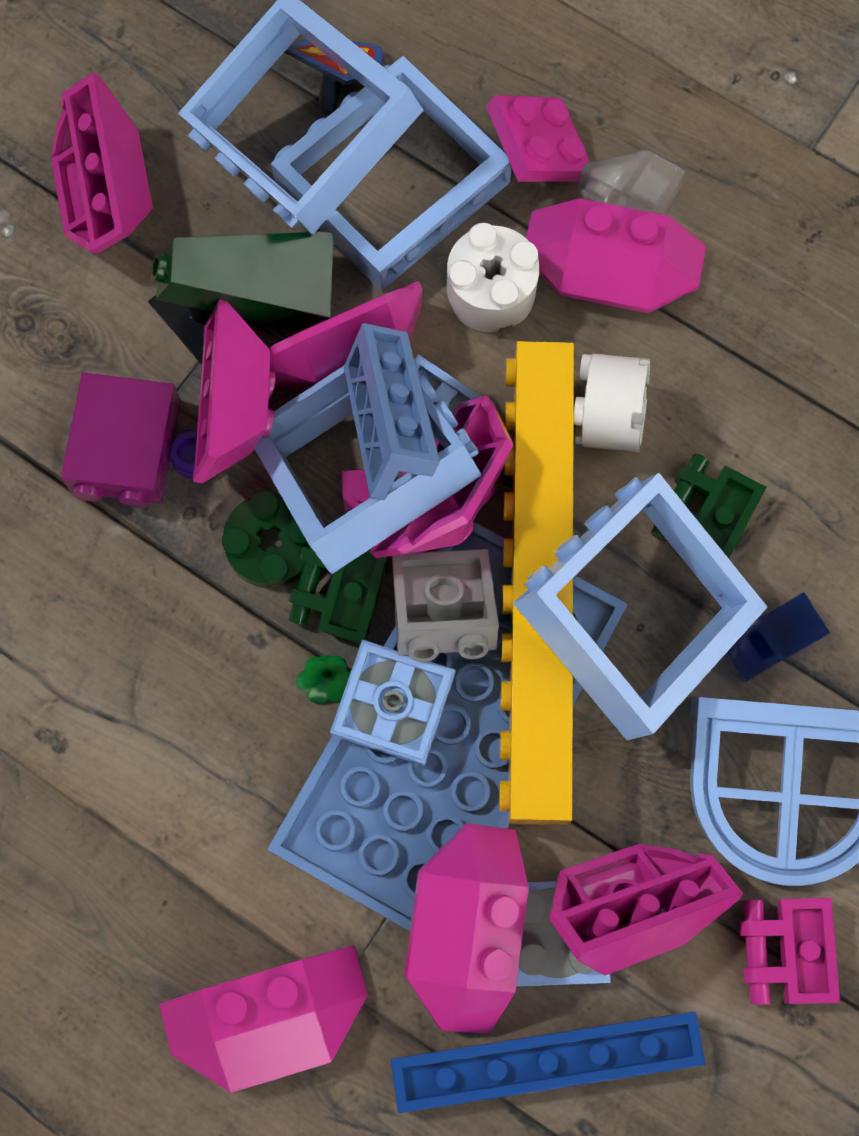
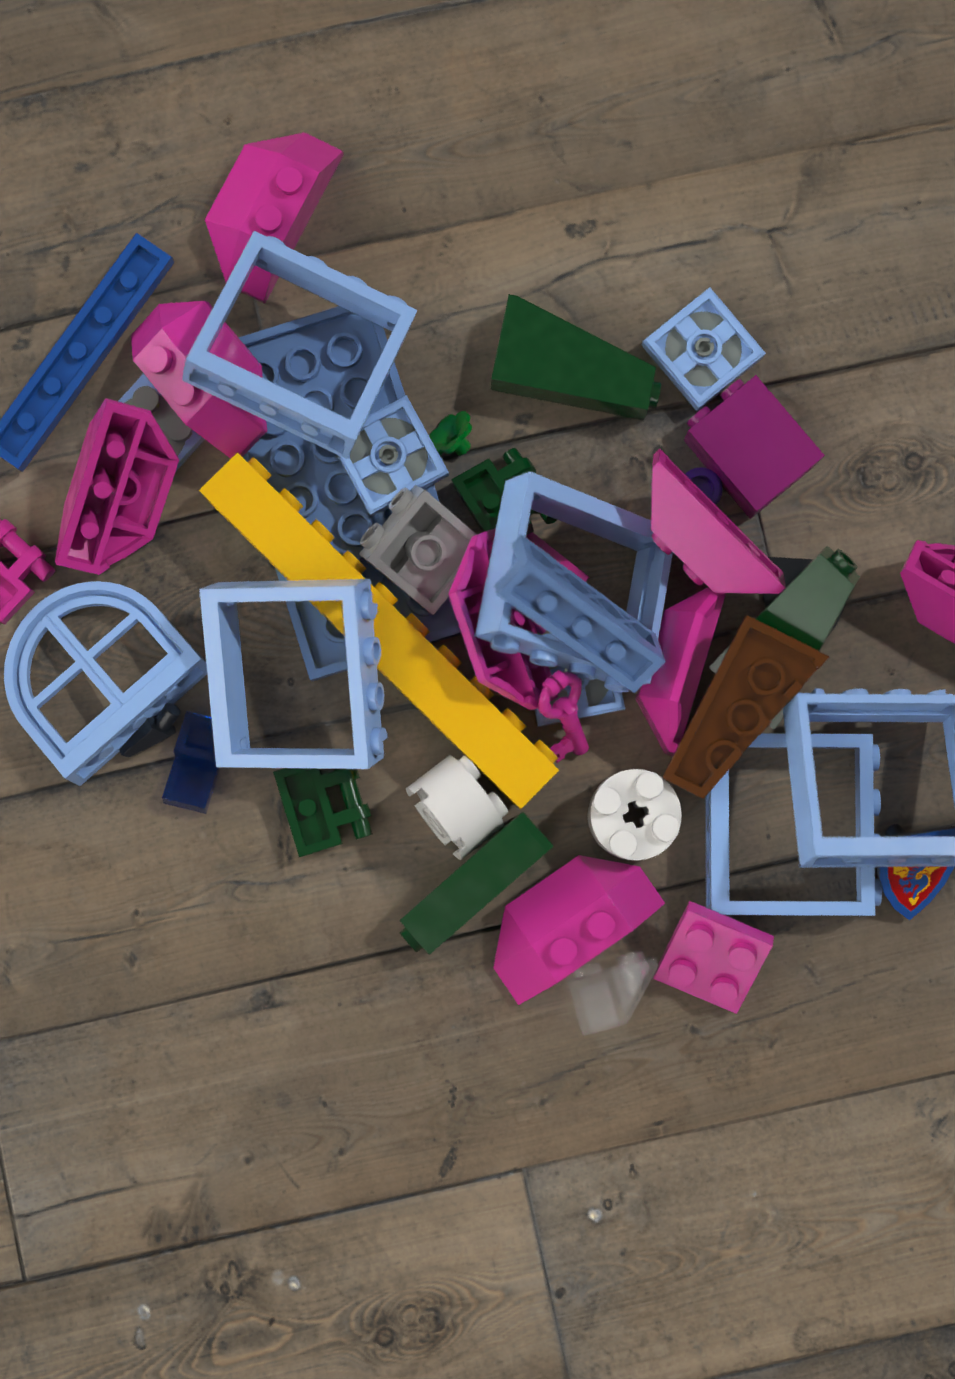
camera: 135 degrees right, 10 degrees up
(72, 546) = (703, 349): none -> light blue piece
(184, 645) = (566, 365): none -> dark green slope
(242, 541) = (597, 463): dark green plate -> none
(324, 261) = (745, 695): none -> reddish brown wing
(448, 828) = (270, 400): none -> light blue window
(467, 383) = (566, 711): none -> dark pink piece
(673, 339) = (474, 884): none -> dark green slope
(785, 690) = (152, 731): none -> black bar

